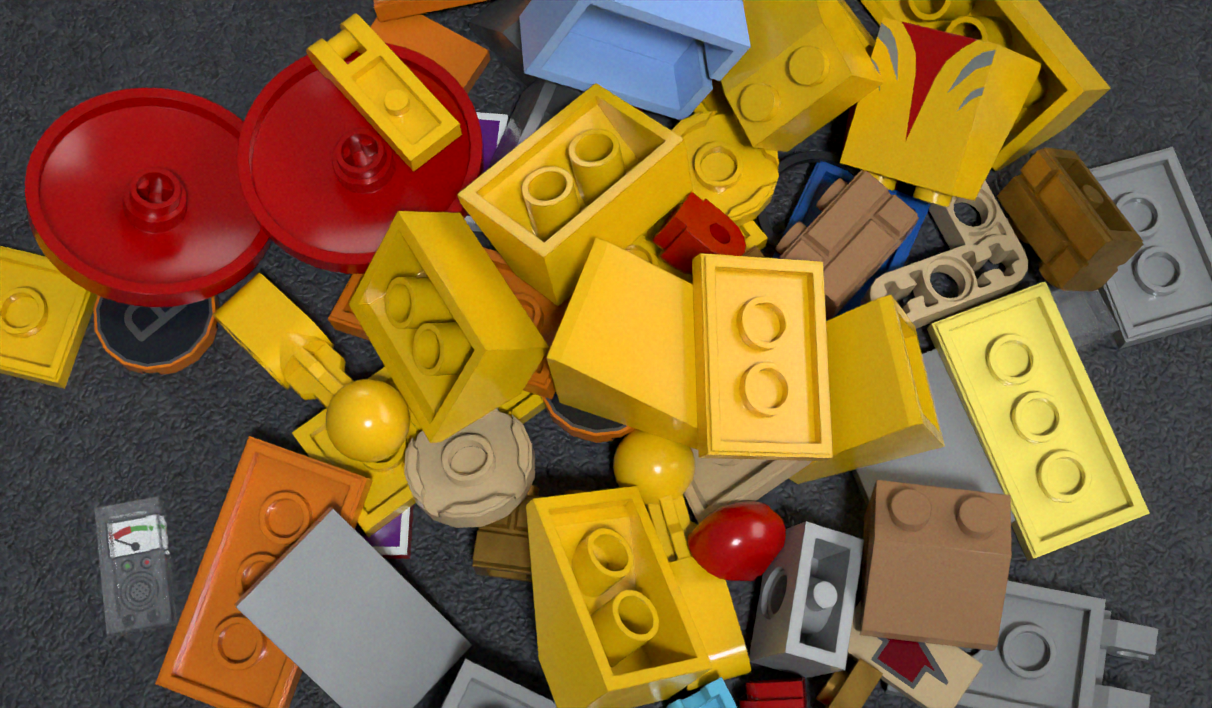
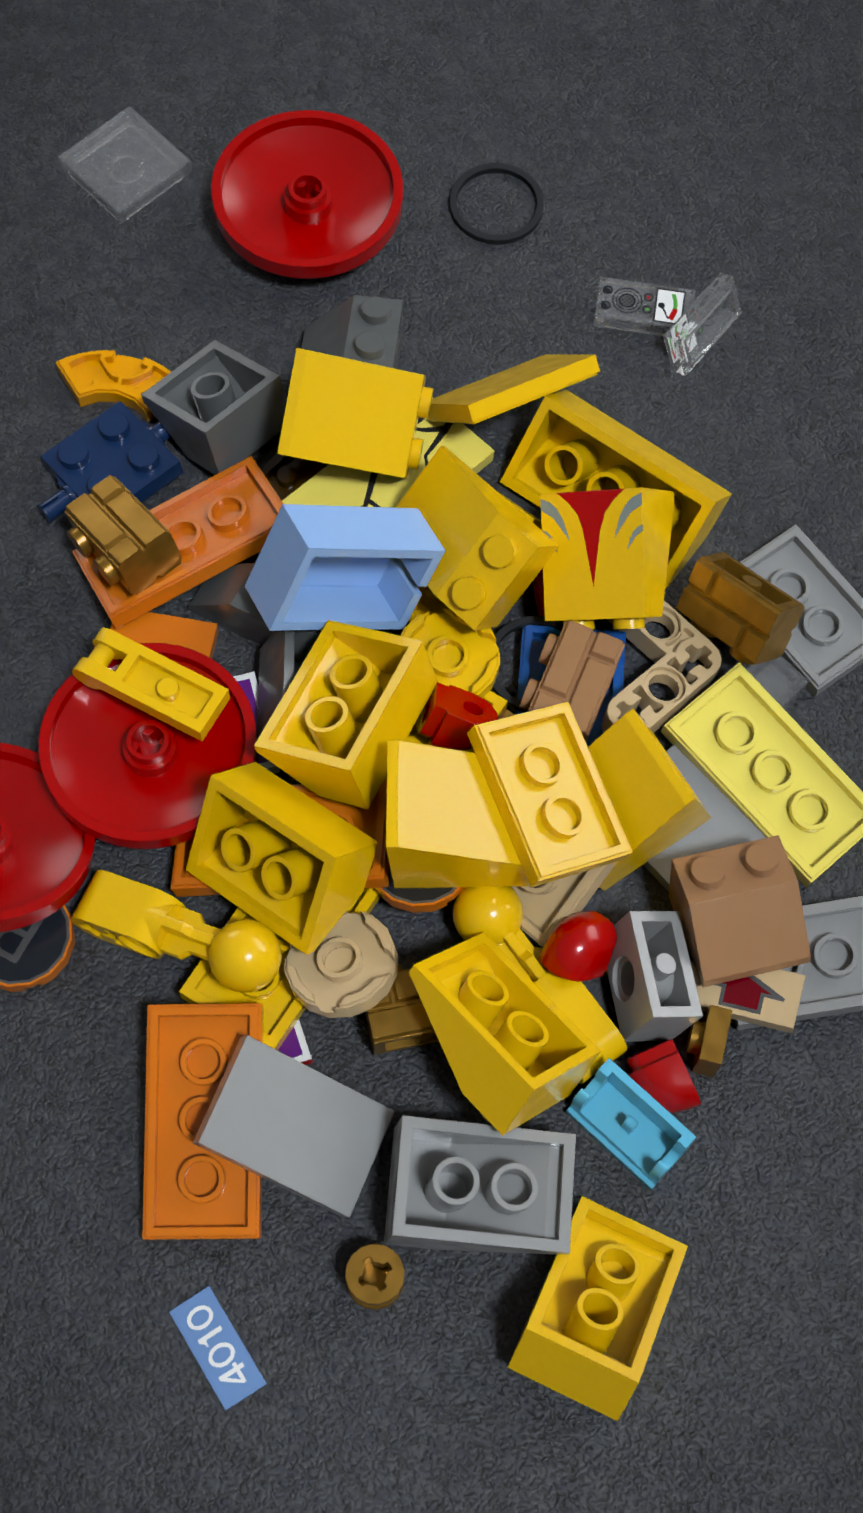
camera: 25 degrees left, 5 degrees down
(135, 567) = (84, 1151): clear tile -> none

